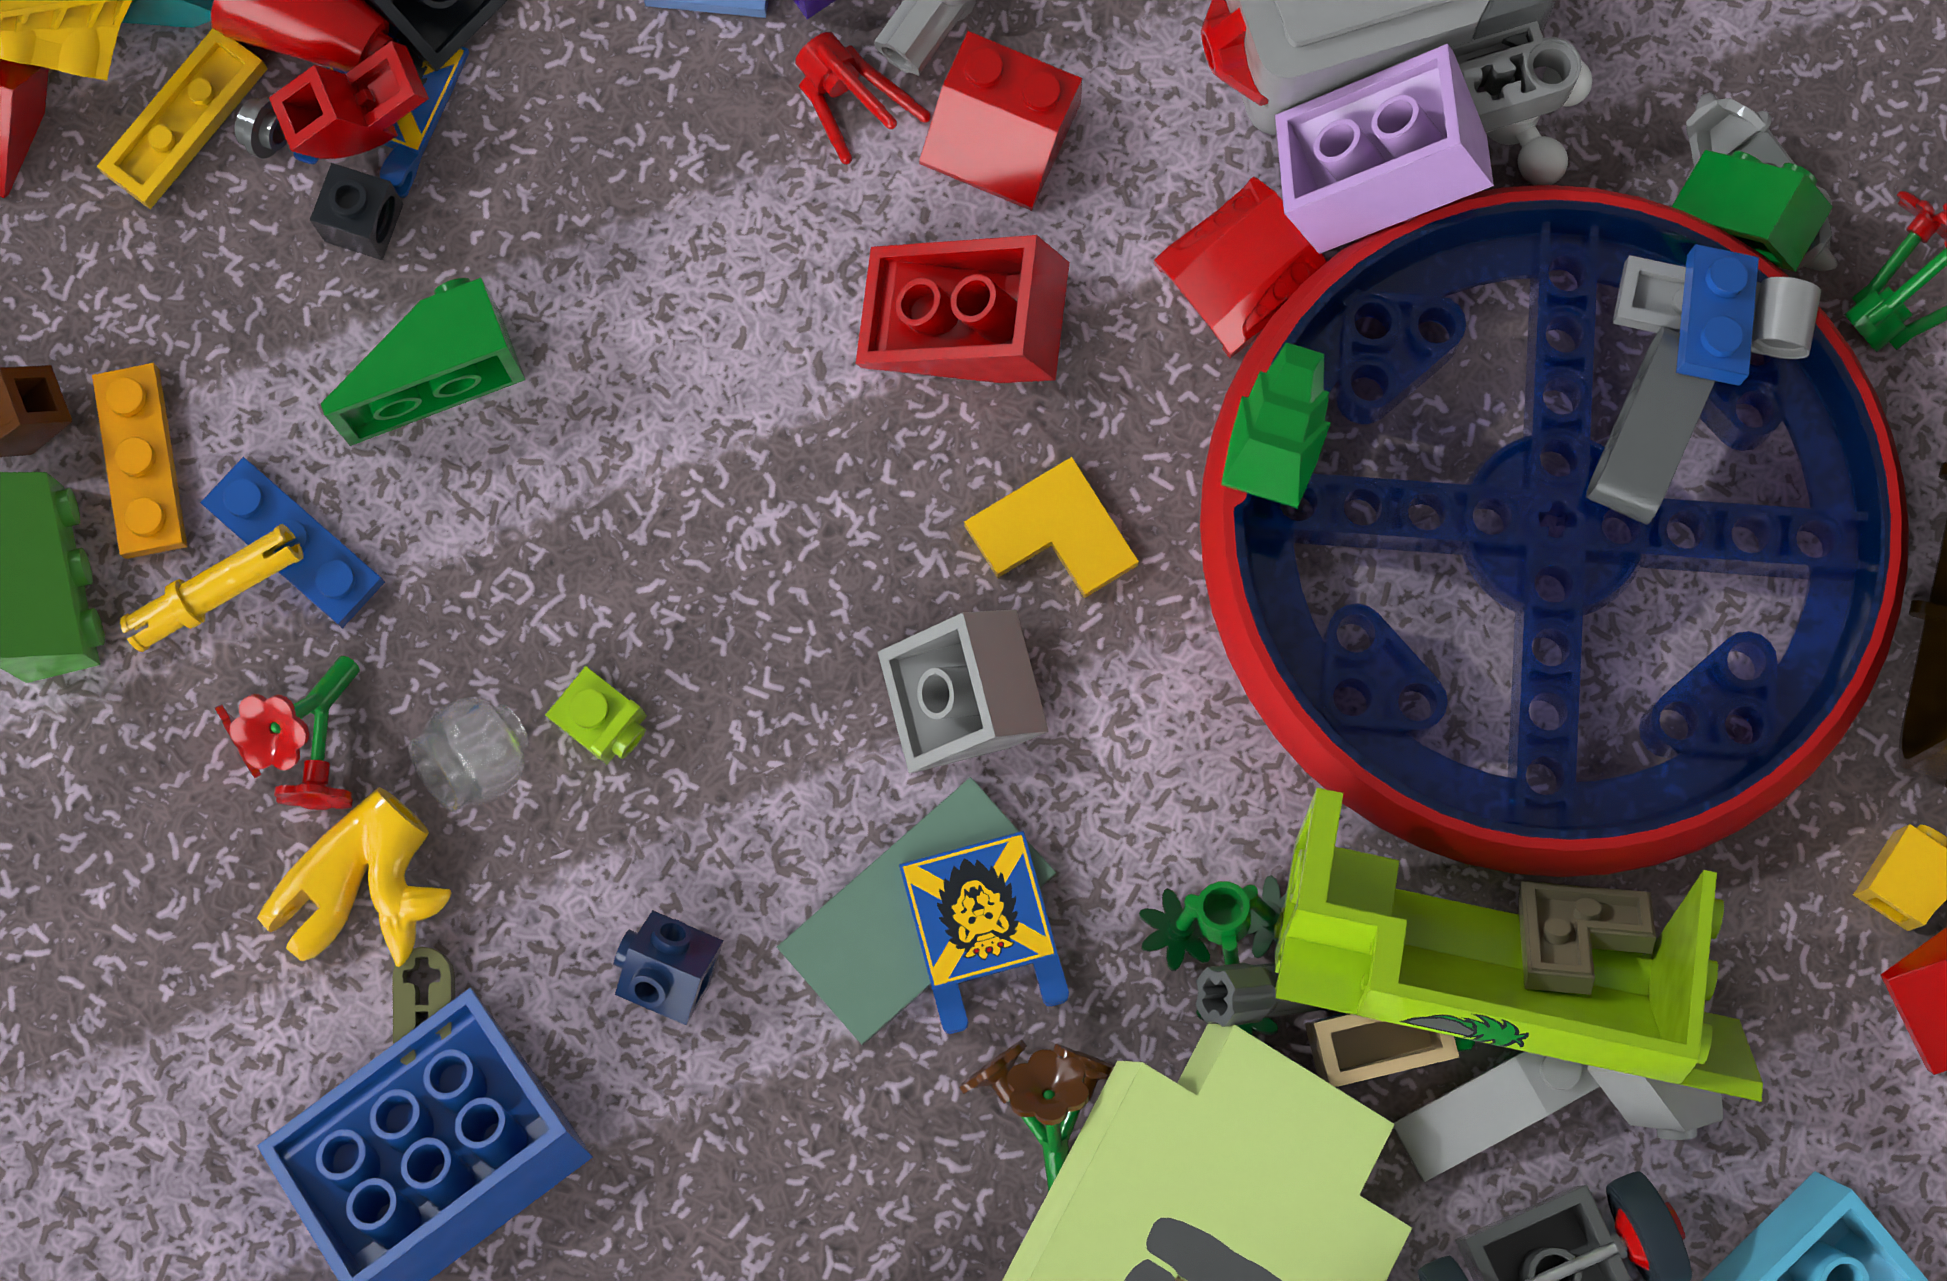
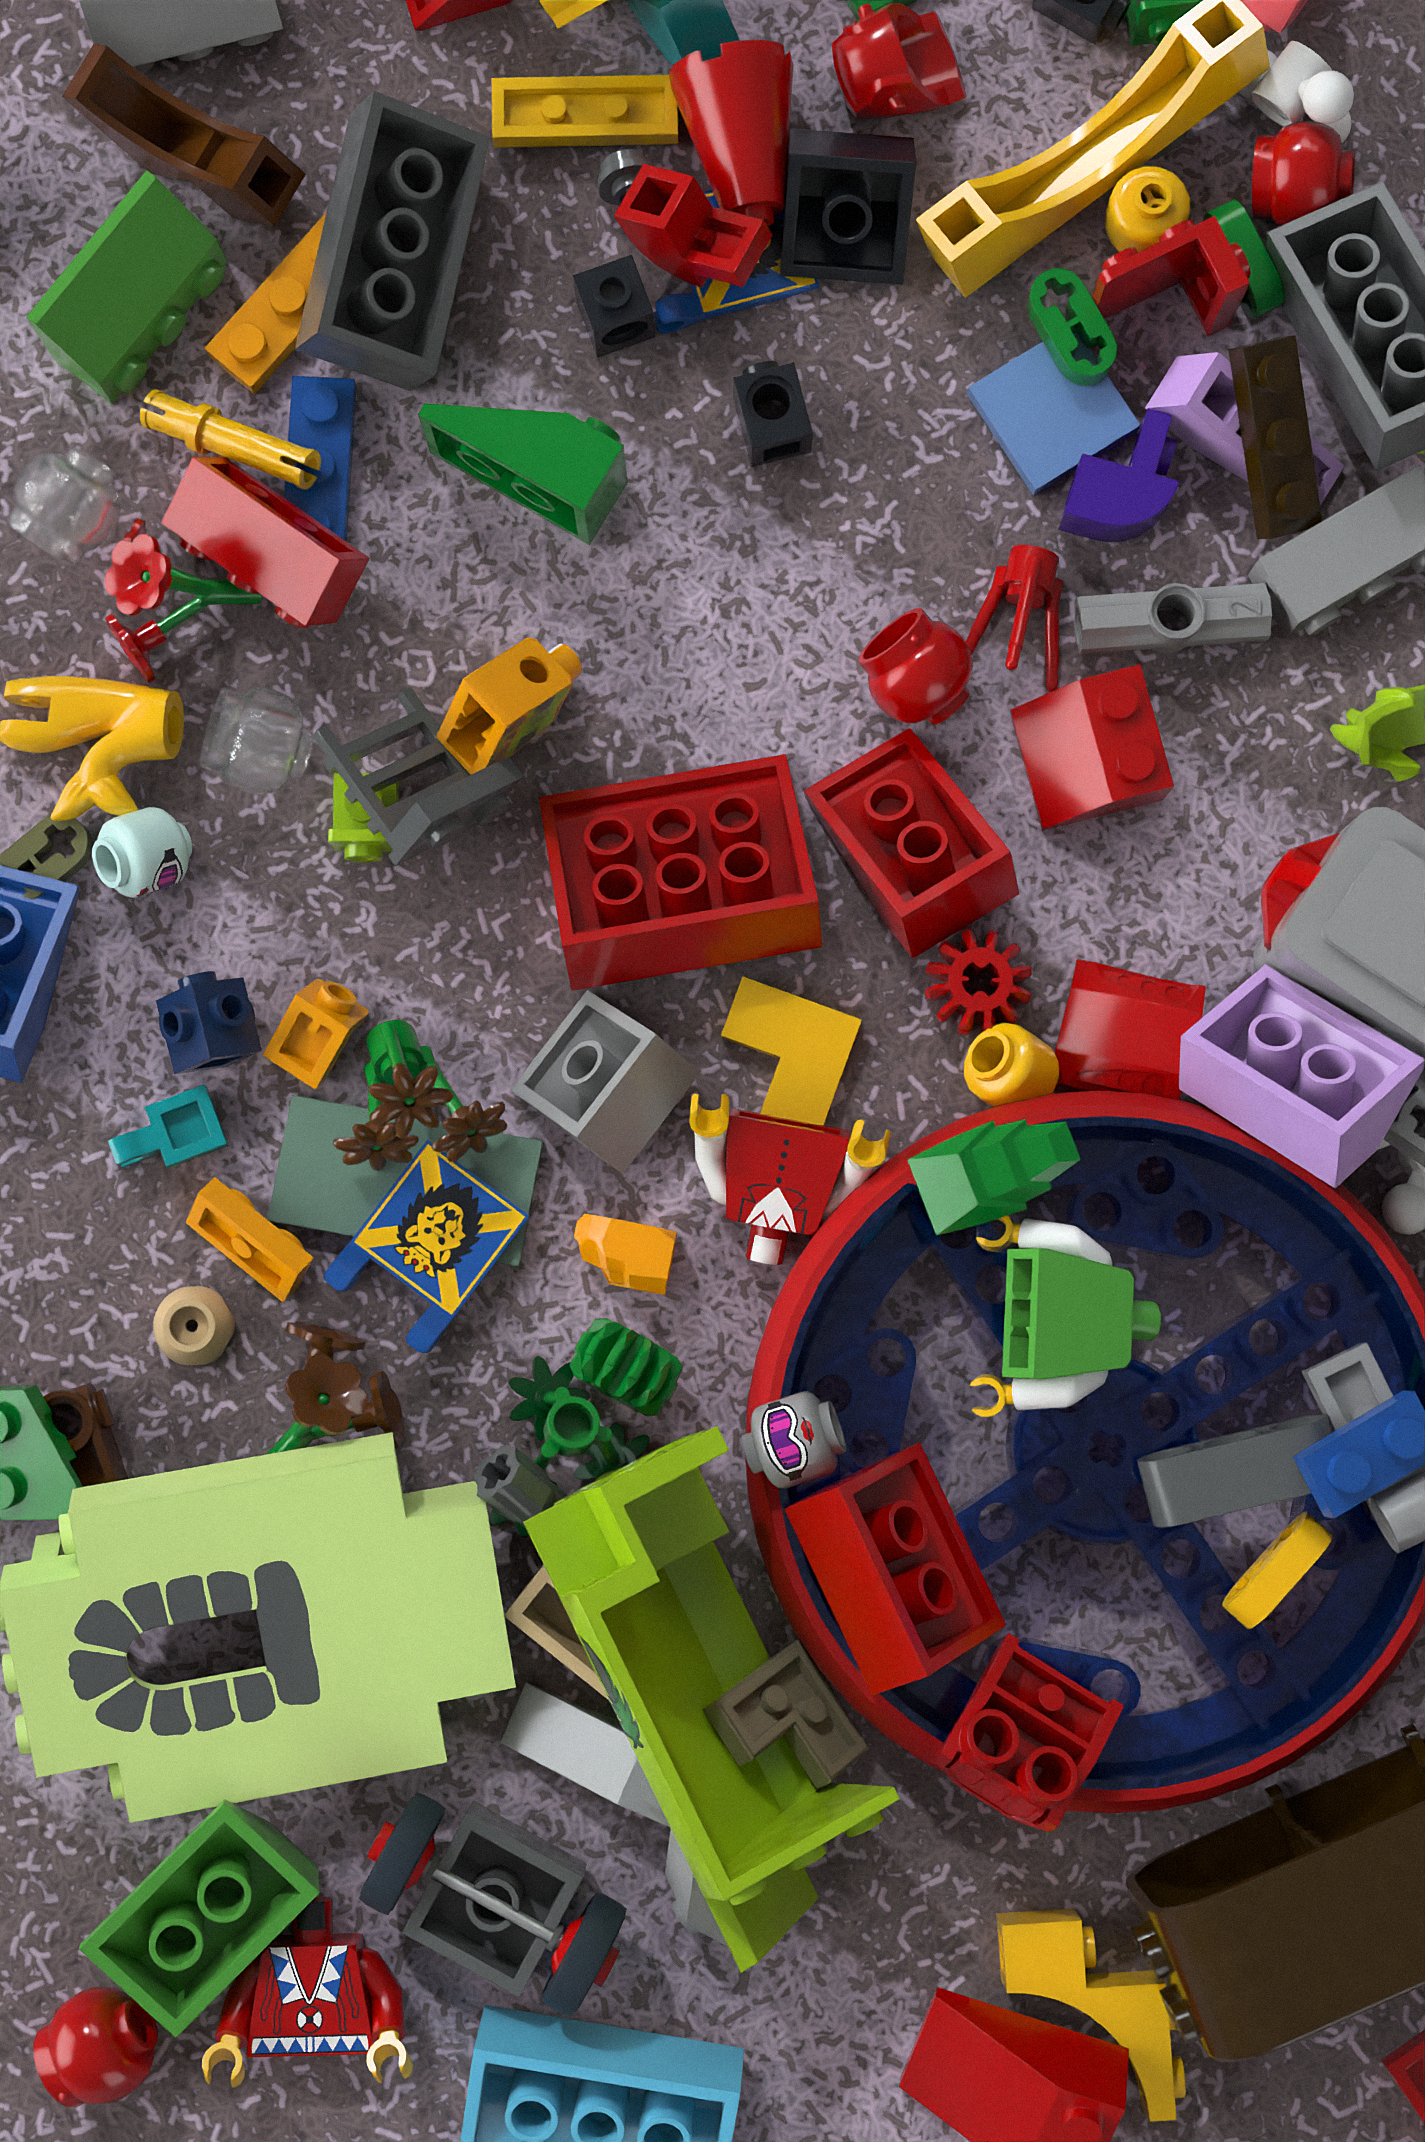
camera: 50 degrees right, 5 degrees up
(155, 756) = (66, 503): none -> clear piece
(165, 338) = (392, 242): none -> dark grey brick
(318, 623) = (264, 542): none -> brick
(486, 913) = (142, 852): none -> light aqua head
(559, 176) = (778, 438): none -> black brick
(599, 510) = (507, 703): none -> light orange torso
(645, 655) = (434, 813): none -> dark grey plate
(731, 1057) = (180, 1129): none -> teal plate
(740, 888) = (315, 1031): none -> light orange bracket
(833, 200) = (918, 669): none -> red piece
(844, 505) = (680, 872): none -> red slope
(862, 834) = (408, 1095): none -> reddish brown plant
(866, 1069) = (249, 1239): none -> light orange plate
(920, 1175) = (213, 1331): none -> tan plate
(1113, 776) = (627, 1252): none -> light orange rock
(1135, 335) = (977, 960): none -> red gear
(1144, 606) = (779, 1171): none -> torso
(1199, 369) = (1010, 1065): none -> yellow head
(1204, 845) = (626, 1367): none -> green gear
(1370, 743) = (794, 1440): none -> light grey head
(1433, 462) = (1064, 1316): none -> bright green torso
(1531, 745) = (896, 1569): none -> red slope
(1741, 745) = (1026, 1738): none -> red slope
(1752, 457) = (1277, 1570): none -> yellow beam

